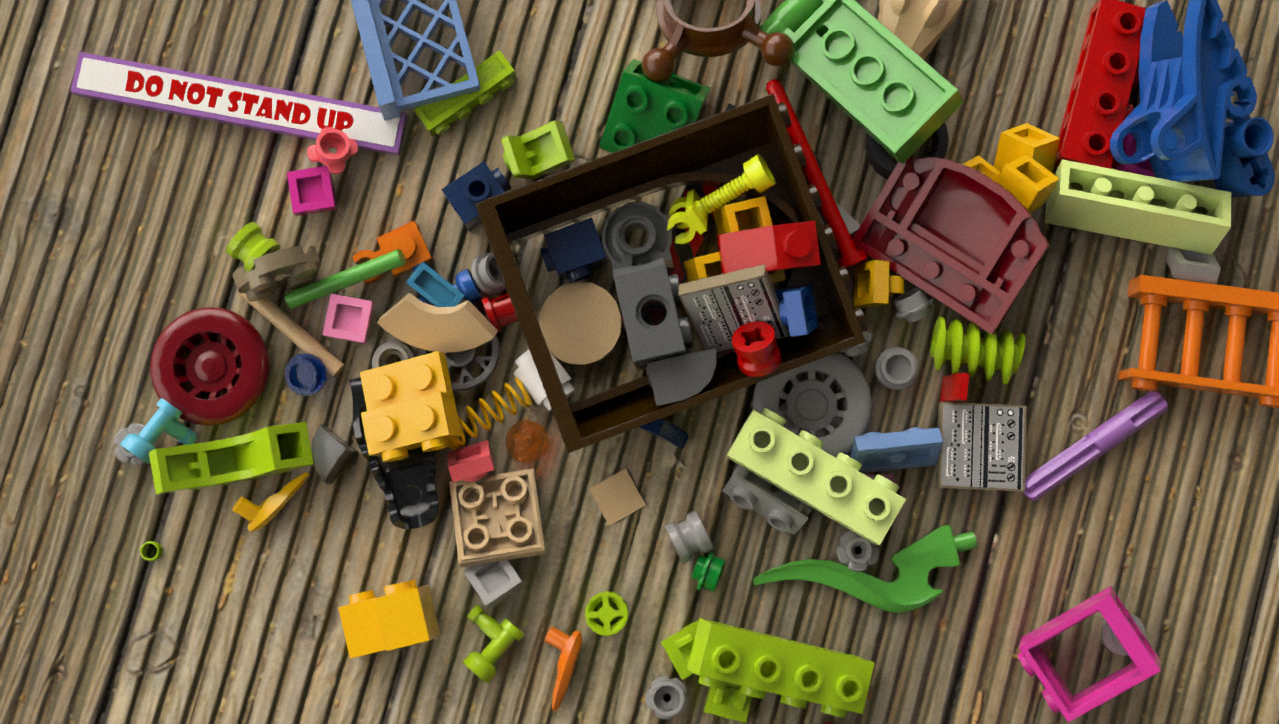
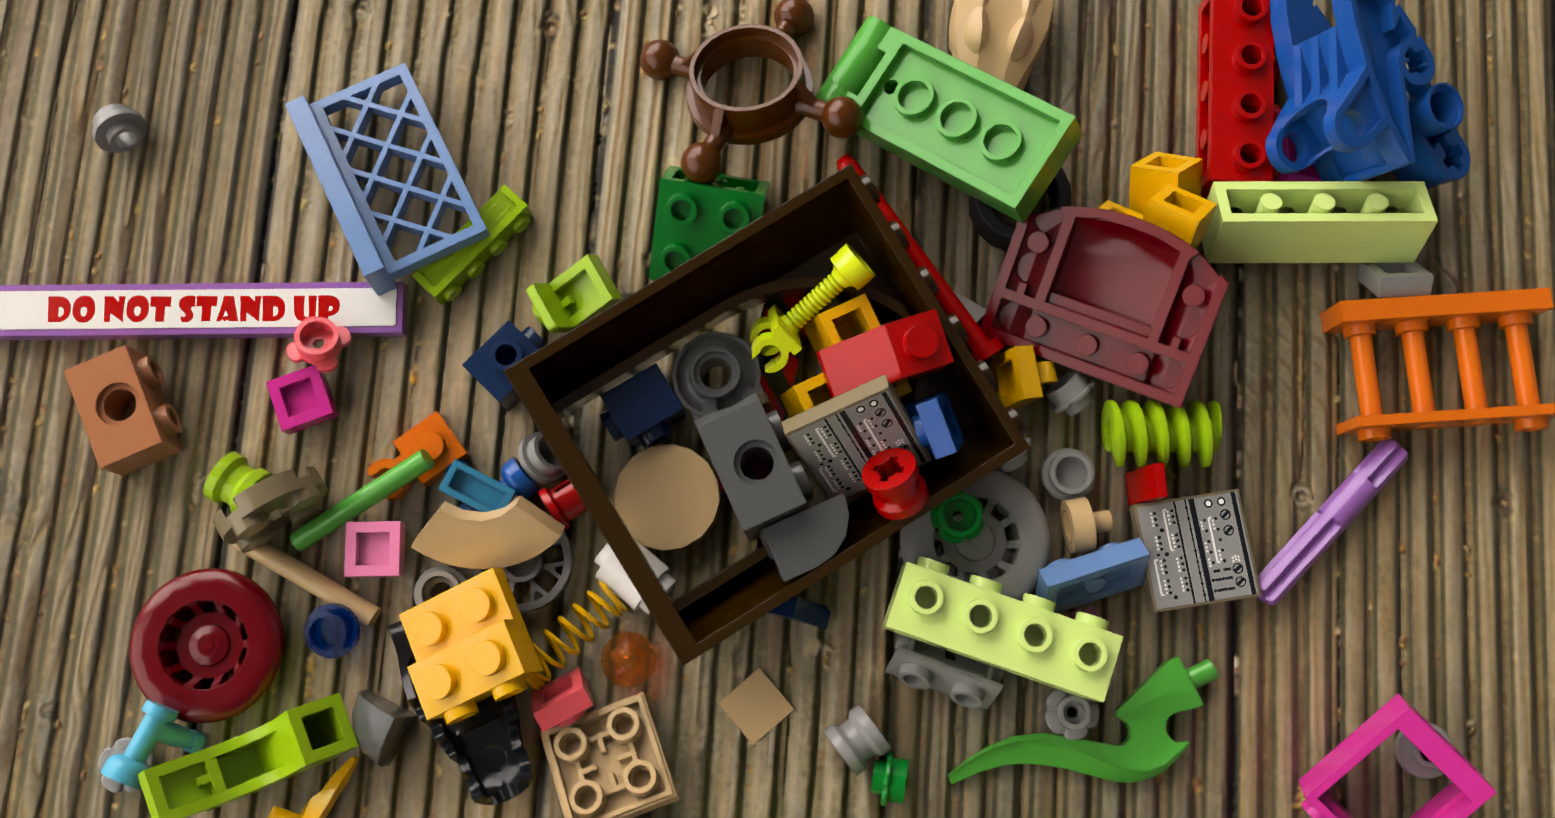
camera: 15 degrees left, 5 degrees down
(159, 153) = (101, 392): none -> nougat brick
(797, 394) = (954, 531): none -> green plate
(898, 409) = (1082, 524): none -> tan tile

